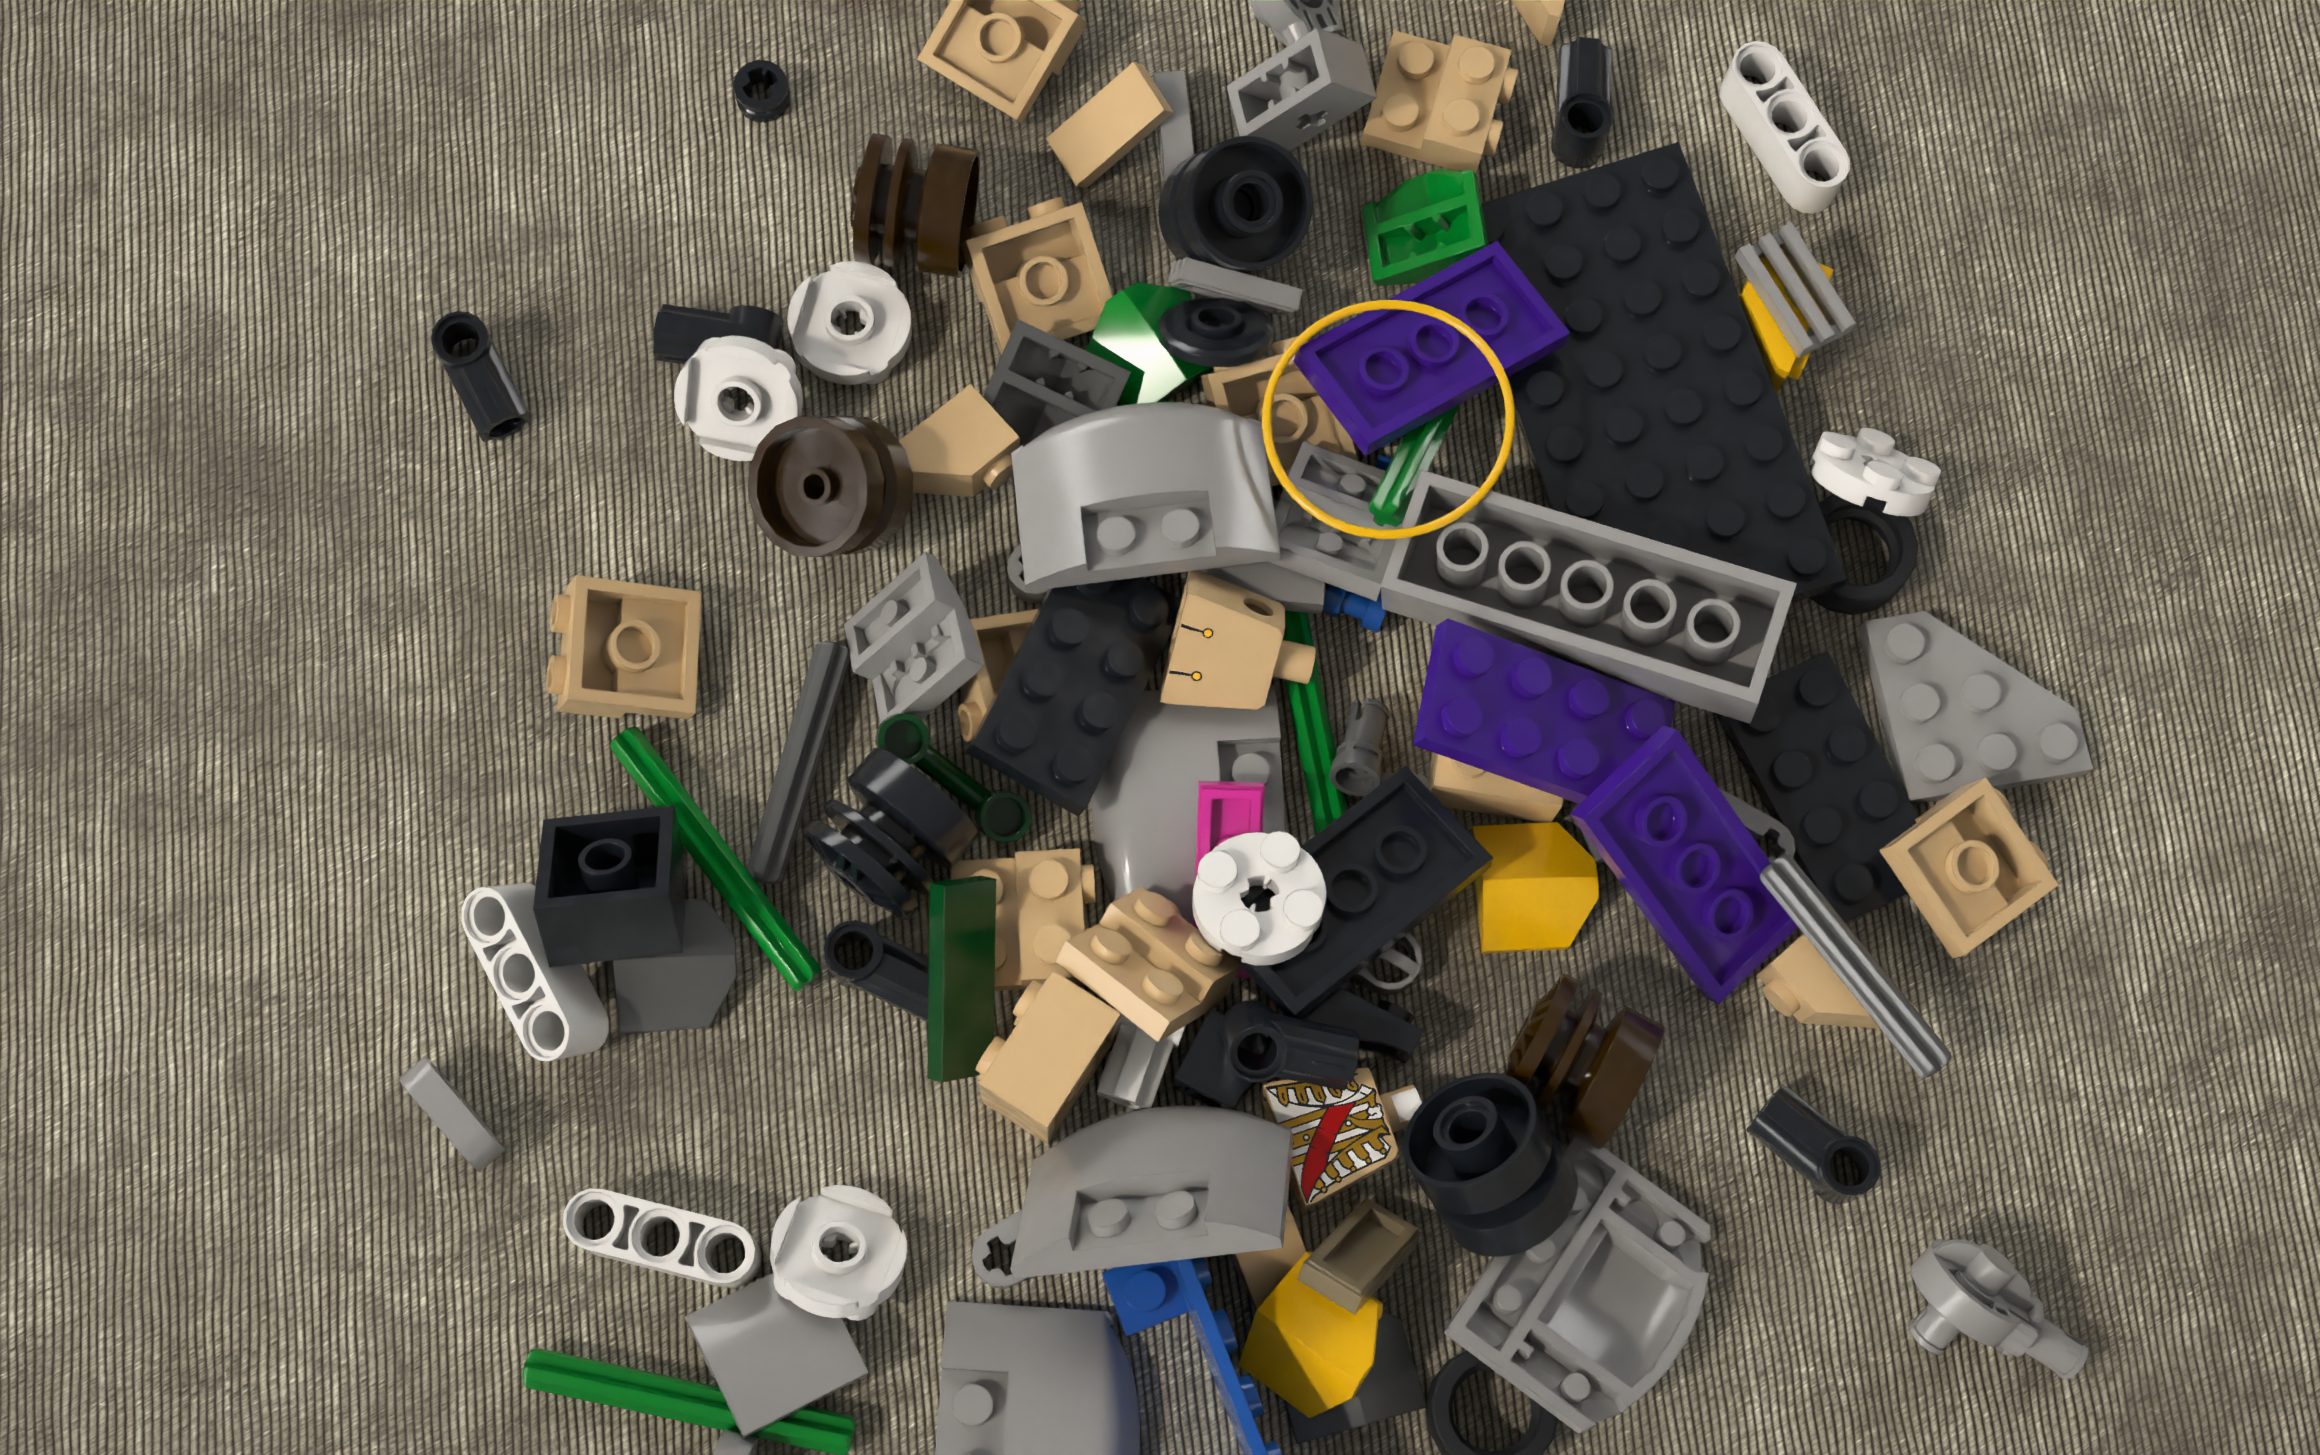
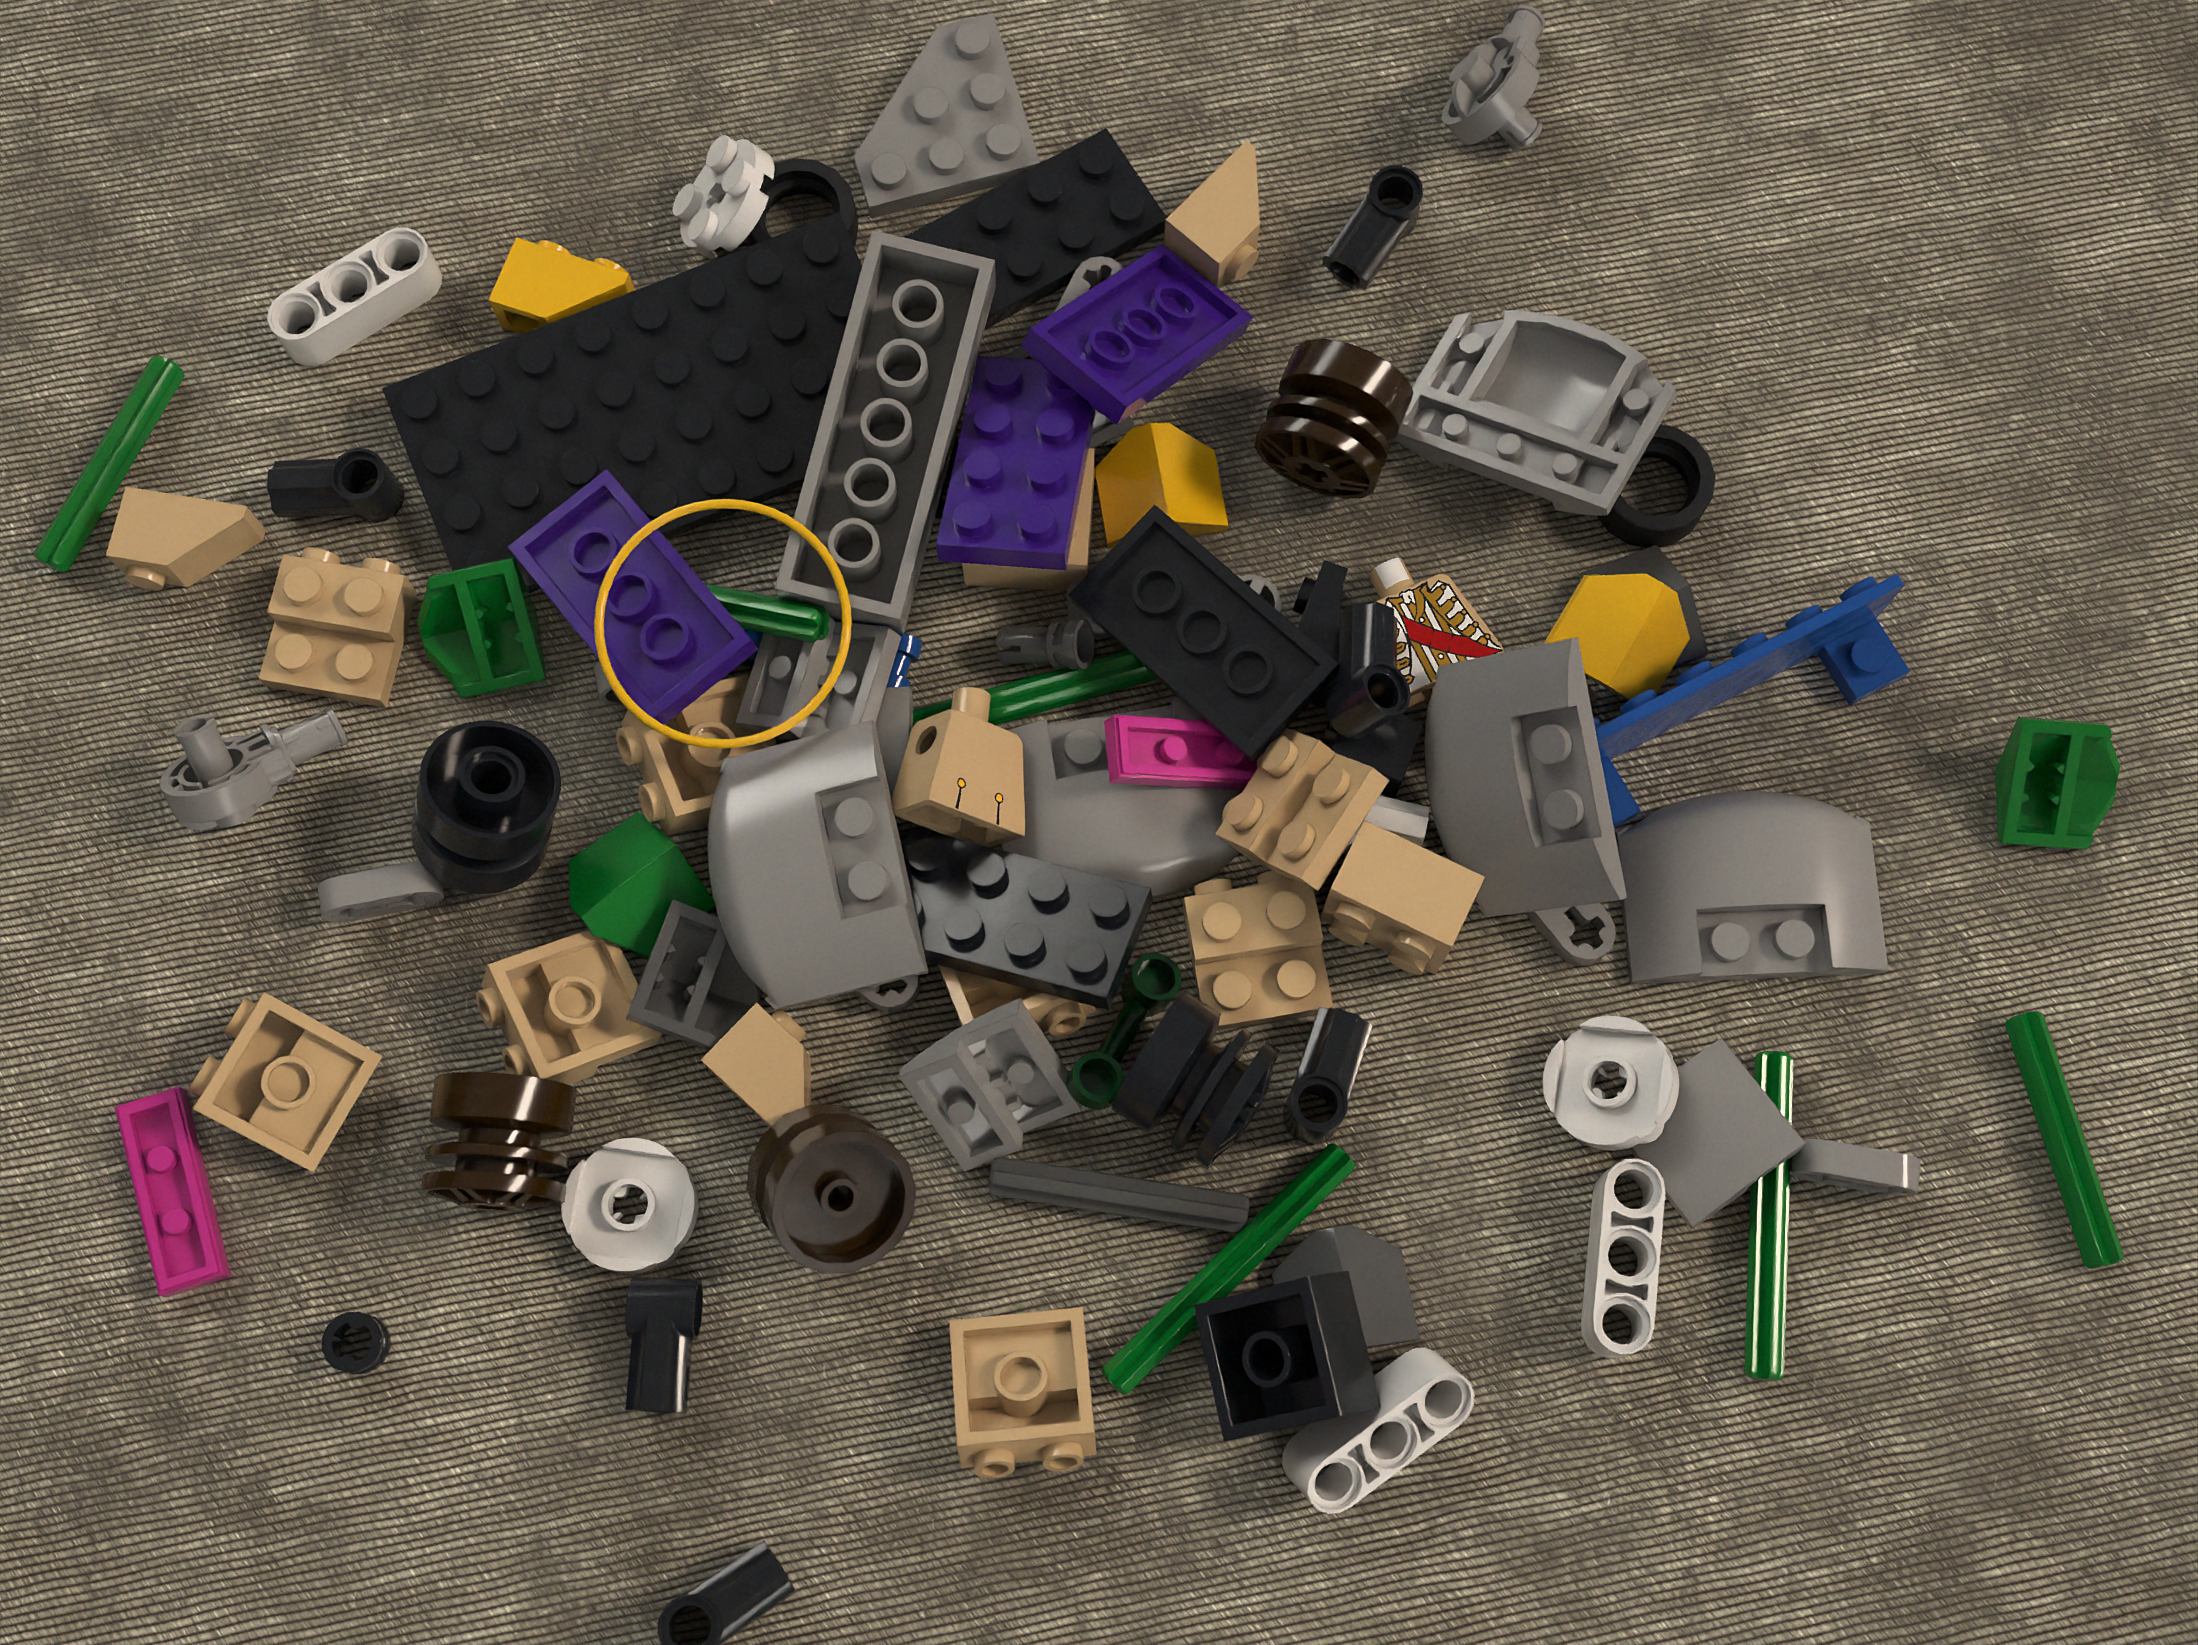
camera: 90 degrees left, 0 degrees up
(452, 1114) = (1532, 1495): light grey beam -> none
(740, 363) = (700, 1306): white plate -> none
(960, 975) = (1332, 993): dark green tile -> none
(1109, 125) = (387, 953): tan tile -> none
(1215, 332) = (625, 815): black wheel -> none
(1234, 285) = (570, 807): light grey tile -> none
(1266, 861) = (1234, 671): white plate -> none
(1302, 89) = (345, 753): light grey brick -> none
(1359, 1255) = (1541, 600): dark tan tile -> none
(1490, 1164) = (1446, 486): black wheel -> none
(1814, 279) = (539, 259): light grey tile -> none
(1855, 966) = (1215, 189): dark grey axle -> none
(1969, 866) = (1103, 104): tan plate -> none

